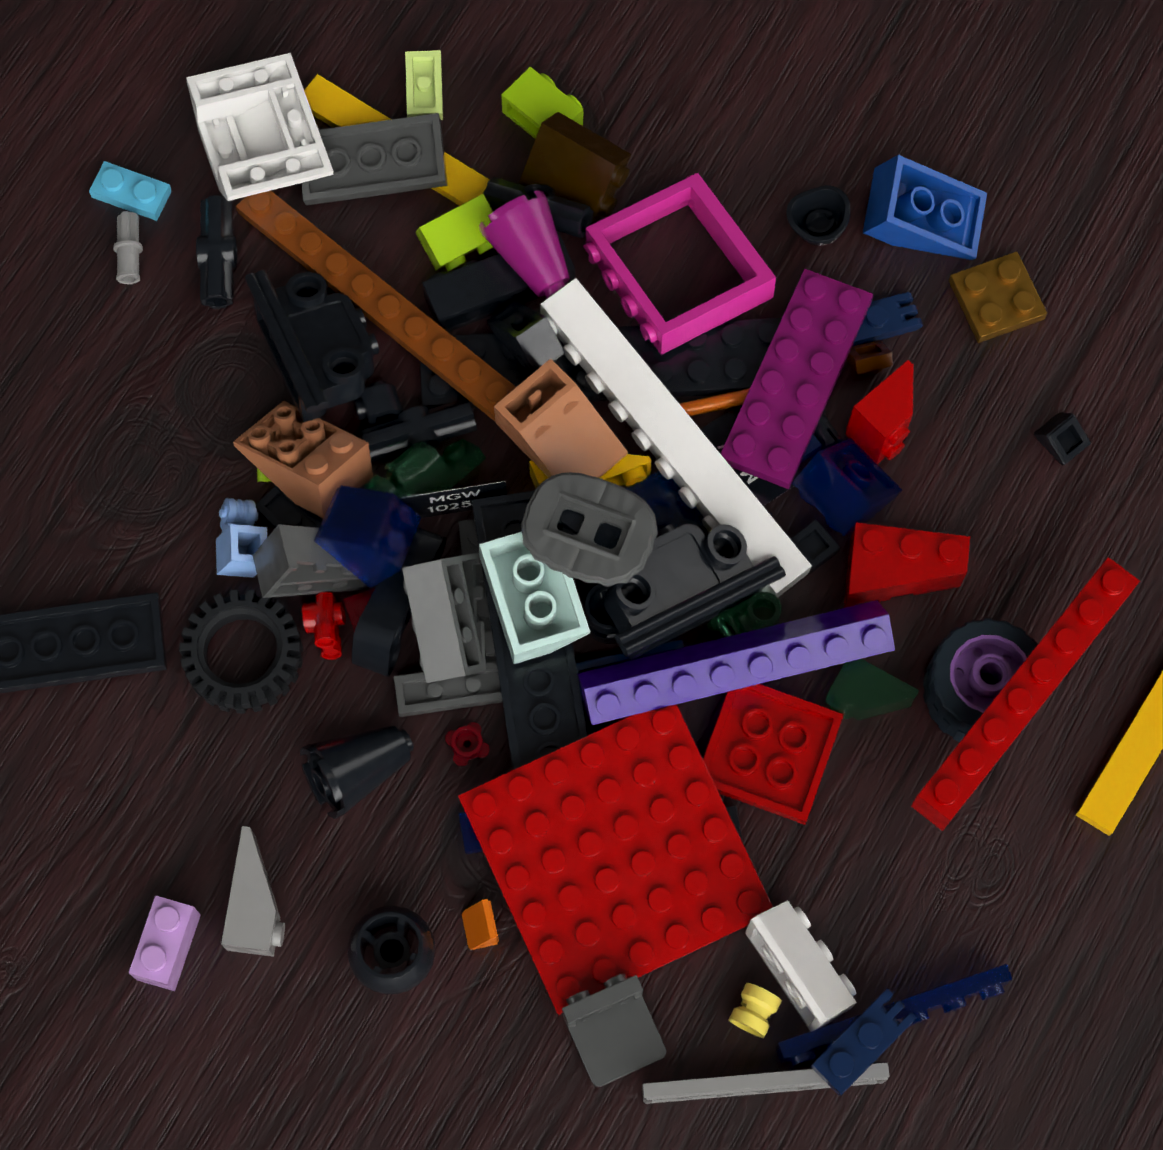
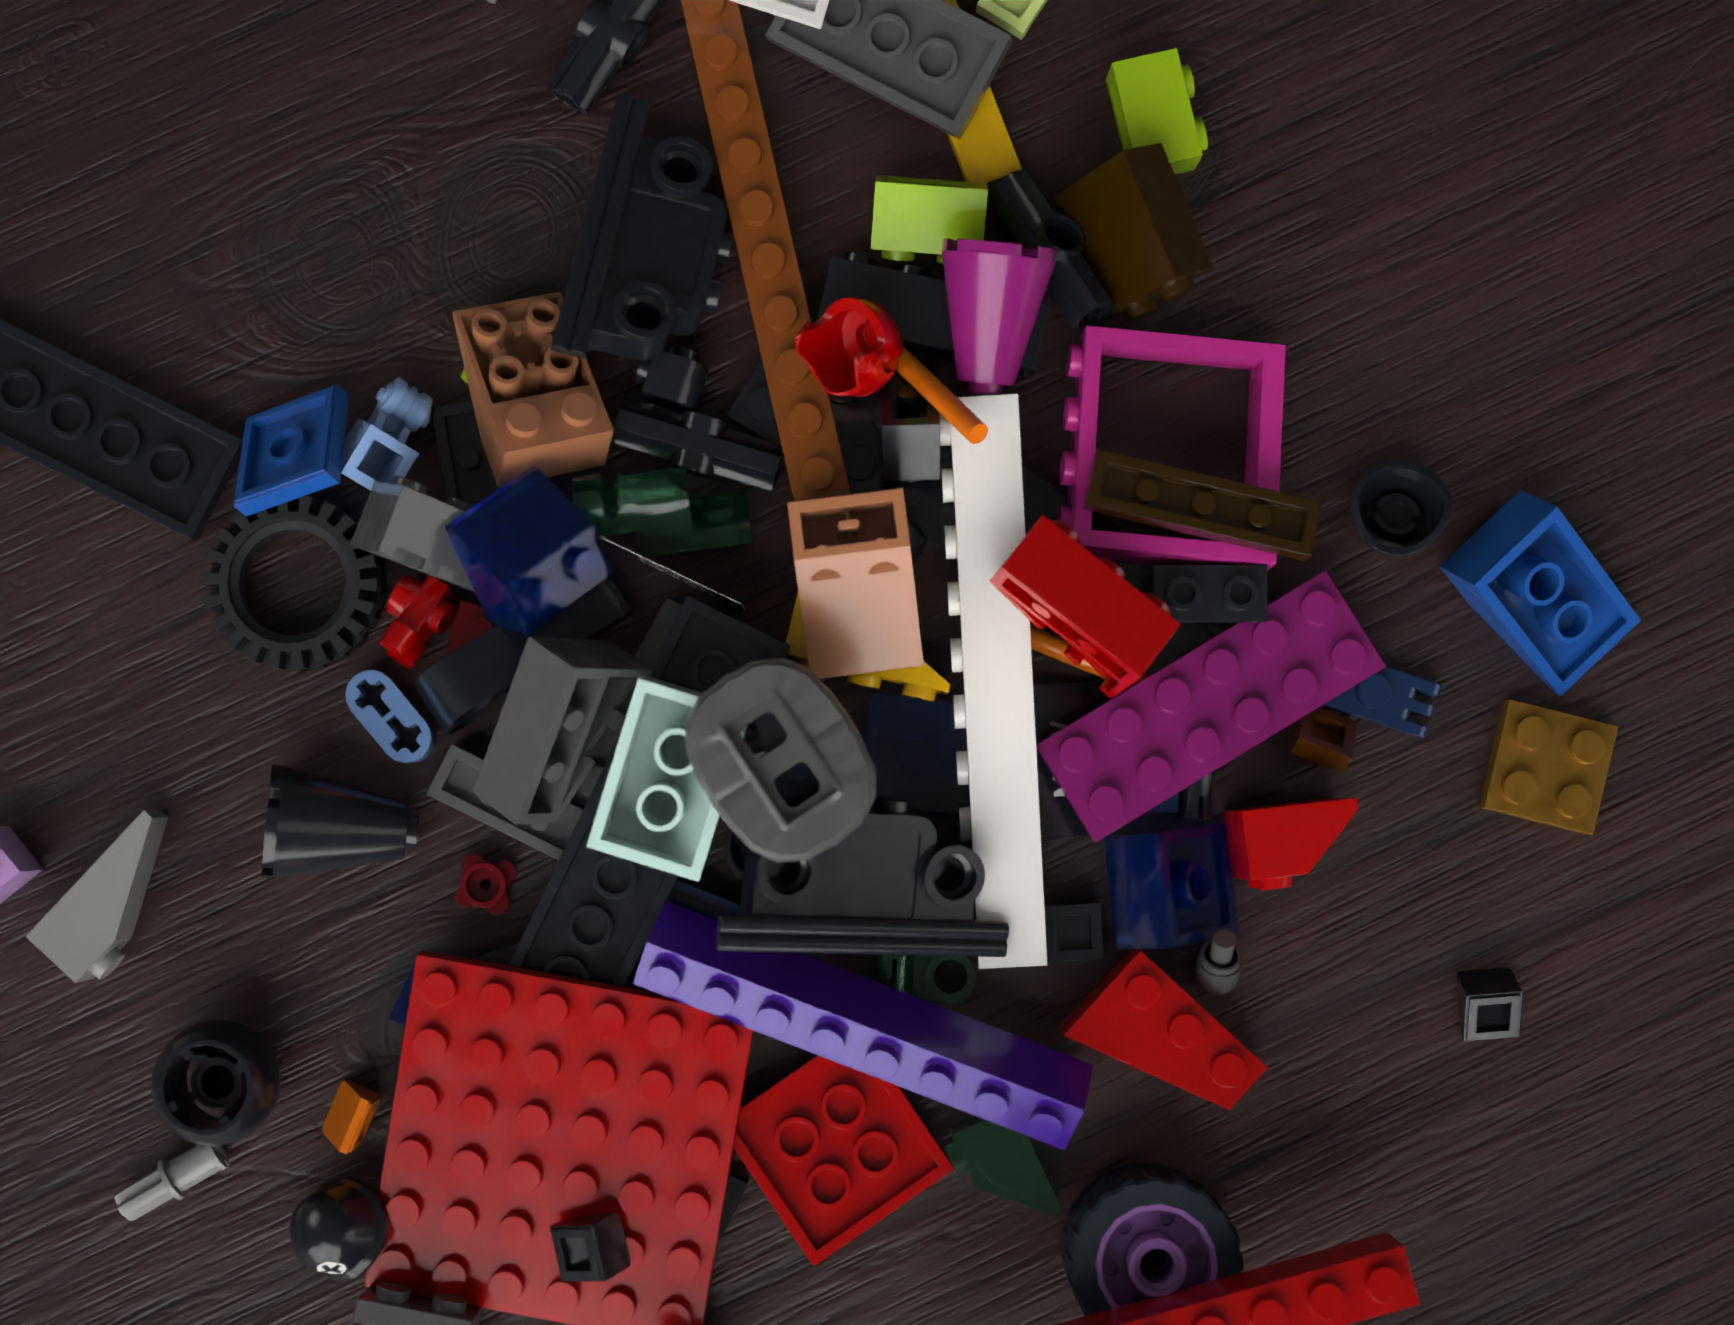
camera: 30 degrees right, 15 degrees up
(192, 574) = (292, 450): none -> blue tile
(348, 680) = (381, 725): none -> medium blue beam
(401, 1035) = (170, 1180): none -> light grey axle
(469, 313) = (851, 347): none -> red cap
(522, 987) = (339, 1229): none -> black helmet
(529, 306) = (941, 398): none -> orange bar
(672, 891) = (590, 1247): none -> black slope
(692, 357) = (1086, 604): none -> red wedge
(714, 270) = (1202, 505): none -> dark brown plate
(751, 317) = (1212, 592): none -> black hinge
(903, 507) = (1218, 964): none -> dark grey cylinder

